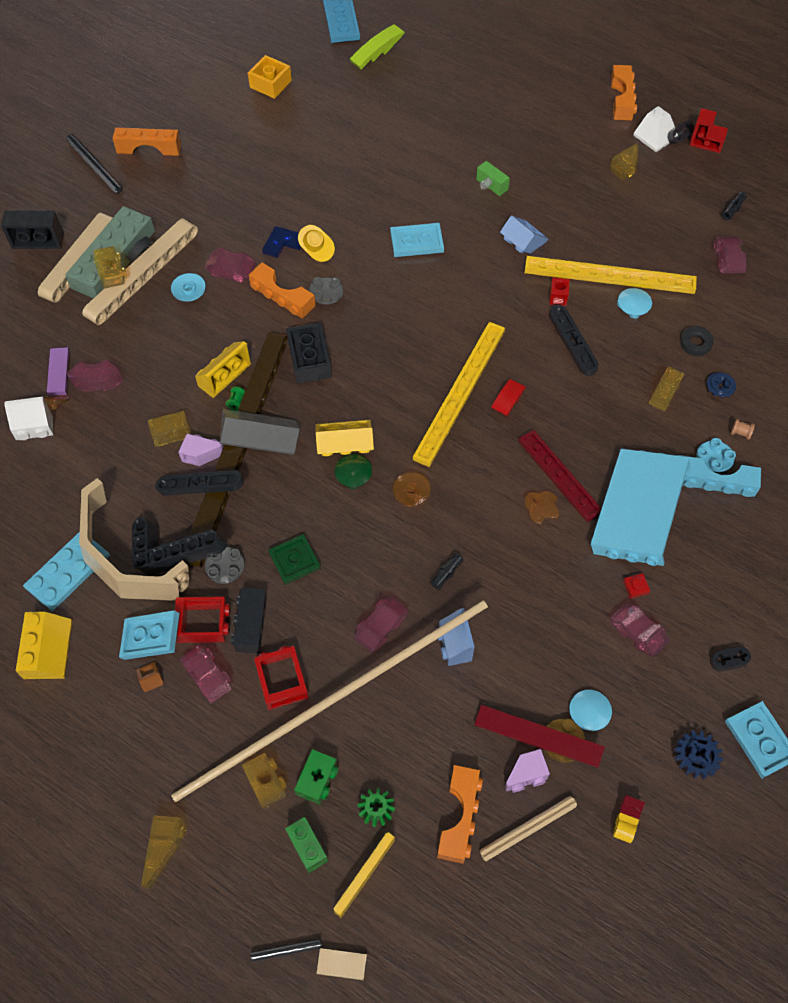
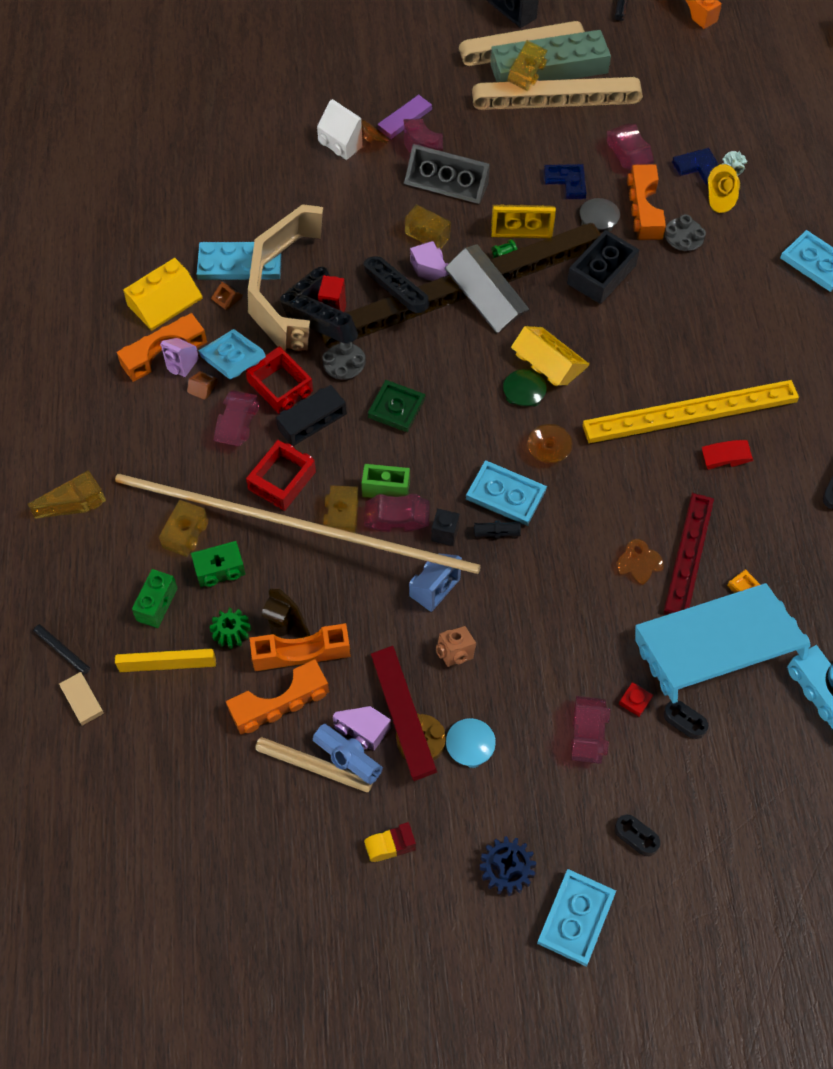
camera: 50 degrees right, 0 degrees up
(88, 602) = (226, 296): none -> dark orange slope
(95, 655) = (138, 357): none -> orange arch
(113, 674) = (179, 356): none -> lavender slope
(138, 383) = (447, 174): none -> dark grey slope
(139, 248) = (572, 72): black tyre -> none
(168, 528) = (333, 292): none -> red brick
(188, 287) = (575, 136): medium azure dish -> none
(214, 315) = (569, 174): none -> clear blue tile
(261, 322) = (600, 212): none -> dark grey dish
(301, 221) = (735, 160): none -> light aqua gear
(344, 648) = (345, 500): none -> clear yellow brick
(352, 612) = (385, 481): none -> bright green brick
(400, 760) = (284, 612): none -> dark brown panel
(419, 601) = (445, 527): none -> black brick
(424, 544) = (506, 492): none -> medium azure plate
(435, 769) = (277, 652): none -> orange arch
(516, 664) = (456, 646): none -> nougat brick
(541, 798) = (347, 754): none -> medium blue piece
(606, 462) = (742, 582): none -> light orange tile
(673, 571) = (686, 719): none -> black beam

